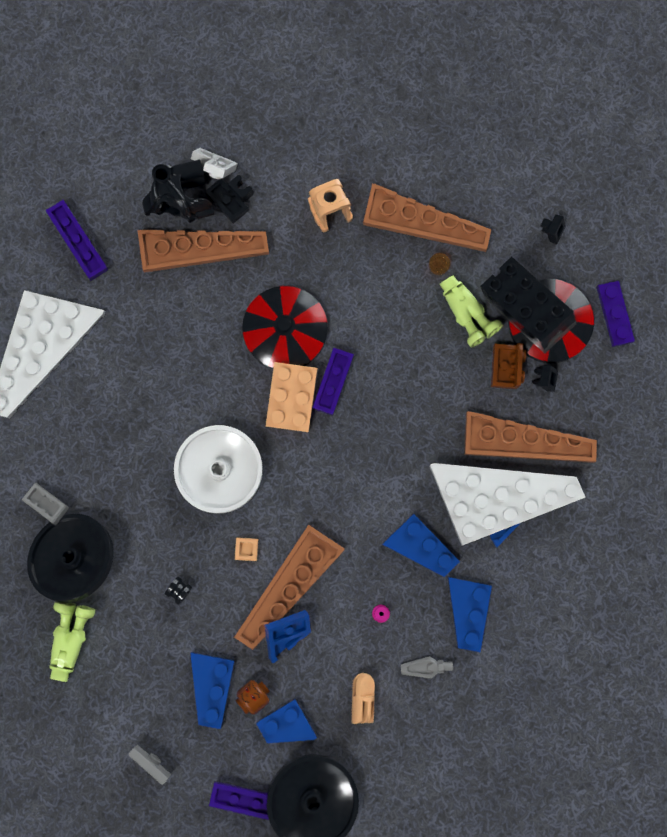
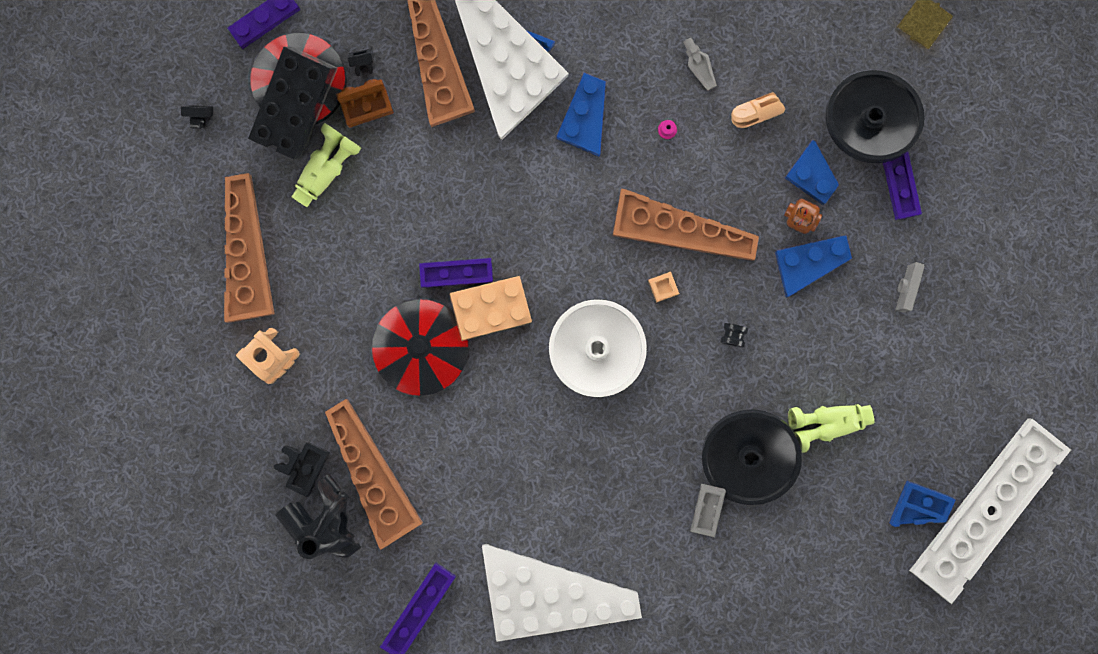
camera: 115 degrees left, 5 degrees up
(215, 165) = (272, 494): white plate -> none
(286, 633) = (728, 210): blue wing -> none
(439, 264) = (284, 217): clear orange tile -> none
(470, 611) = (626, 44): blue wing -> none

